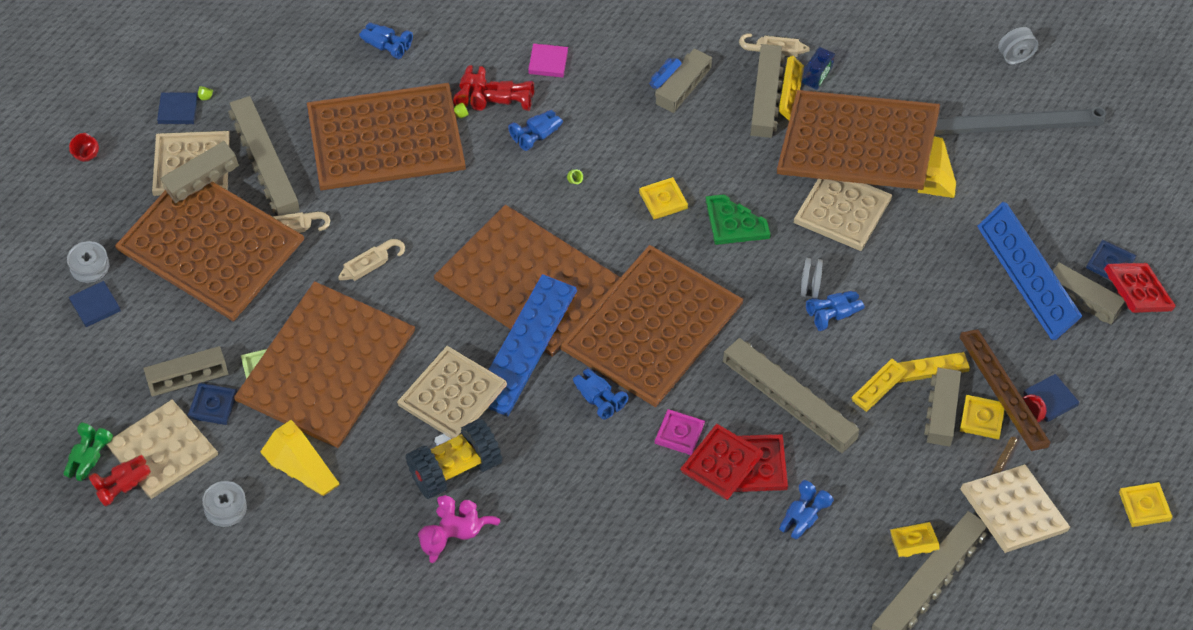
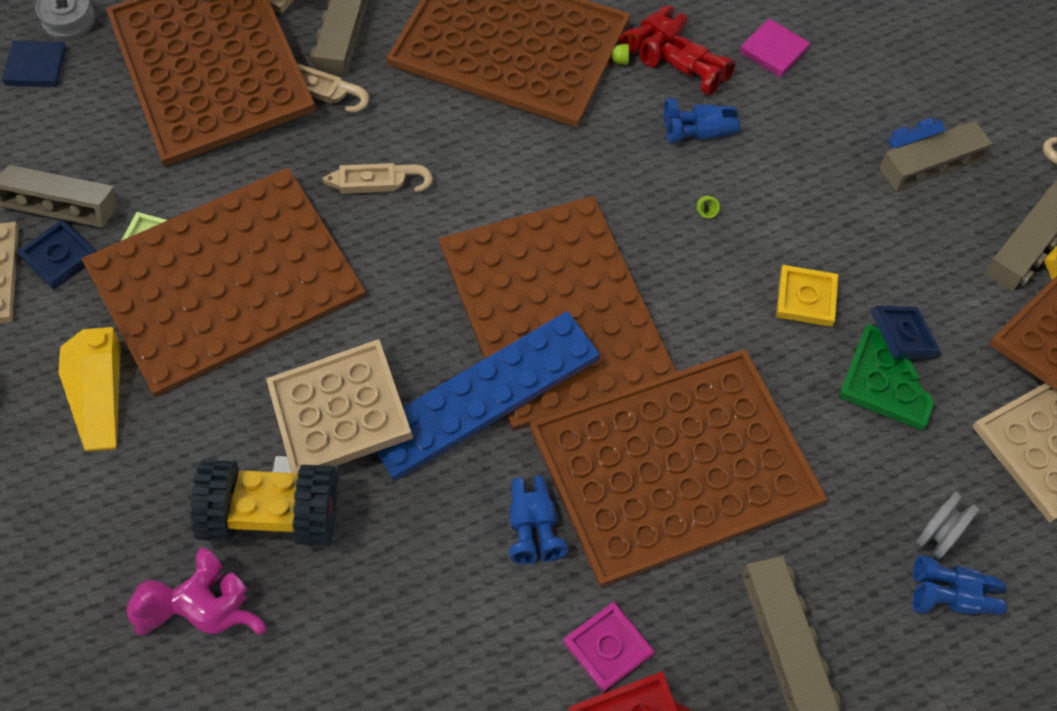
camera: 30 degrees right, 5 degrees up
(729, 190) = (905, 332): none -> dark blue tile

